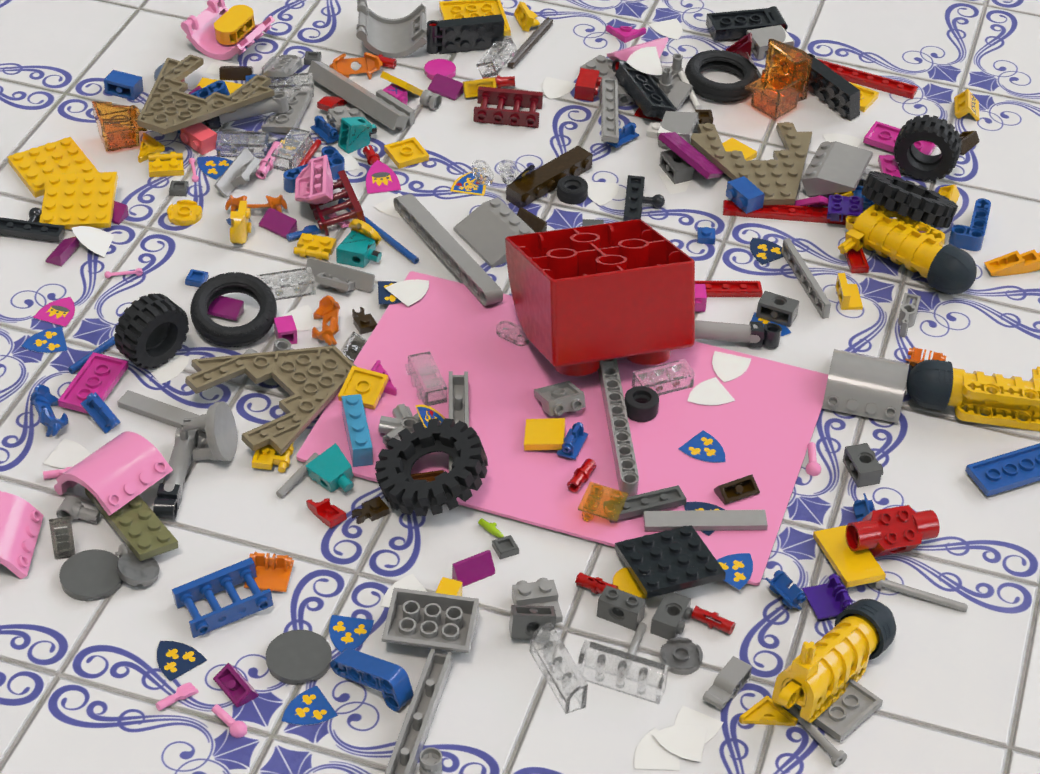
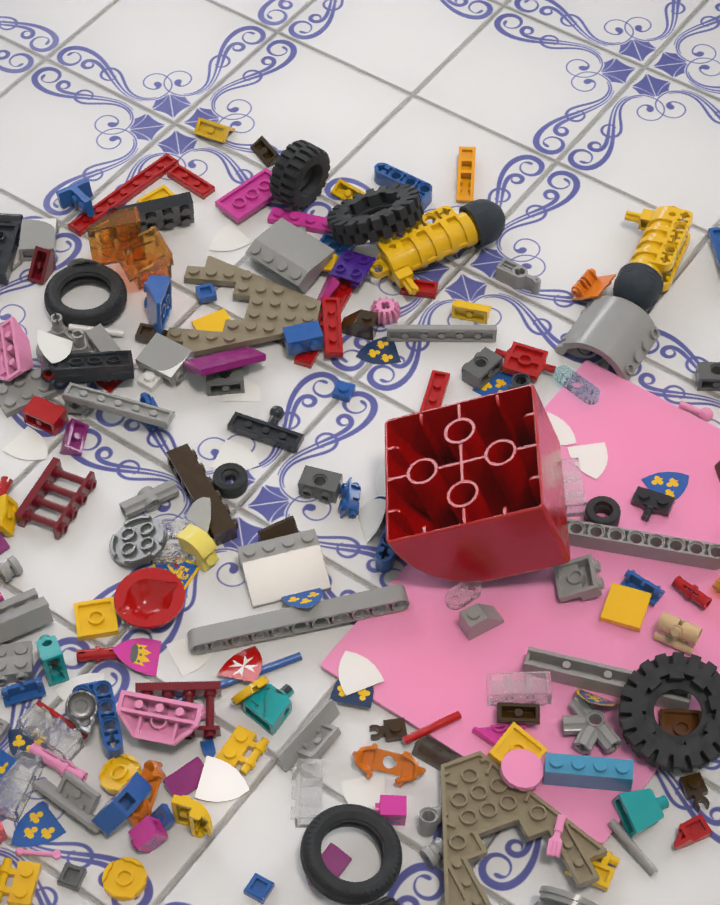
camera: 70 degrees left, 10 degrees up
(219, 209) = (147, 834): none -> dark pink brick
(240, 185) = (122, 804): none -> blue slope
(269, 188) = (118, 772): none -> yellow tile
(278, 415) = (555, 843): none -> bright pink piece
(281, 240) = (220, 781): none -> white sticker
(308, 149) = (82, 710): none -> flat silver hair
(341, 384) = (521, 769): none -> bright pink tile
(373, 340) = (431, 727): none -> red bar
(393, 232) = (243, 665): none -> sticker
(401, 382) = (518, 712): none -> dark brown slope
(431, 169) = (149, 598): none -> red piece
(467, 245) = (304, 599): none -> blue sticker
(486, 153) = (138, 541): none -> tile
(488, 179) = (200, 545): none -> light yellow brick
(489, 345) = (478, 620): none -> light grey slope
(529, 151) = (149, 499): none -> light grey piece
(529, 466) = (677, 632): none -> tan pin
(575, 105) = (74, 438): none -> magenta slope
(675, 438) = (652, 502): none -> black plate
(729, 107) = (158, 300): none -> blue slope
(768, 138) = (206, 293): none -> blue plate
(771, 212) = (332, 327): none -> red tile
(785, 229) = (361, 324): none -> dark brown slope
(793, 377) = (580, 392): none -> clear light blue beam
(804, 335) = (525, 359): none -> red plate
(810, 240) = (387, 310): none -> bright pink gear
(830, 48) = (78, 195): none -> blue bracket
(895, 107) = (190, 181): none -> red tile

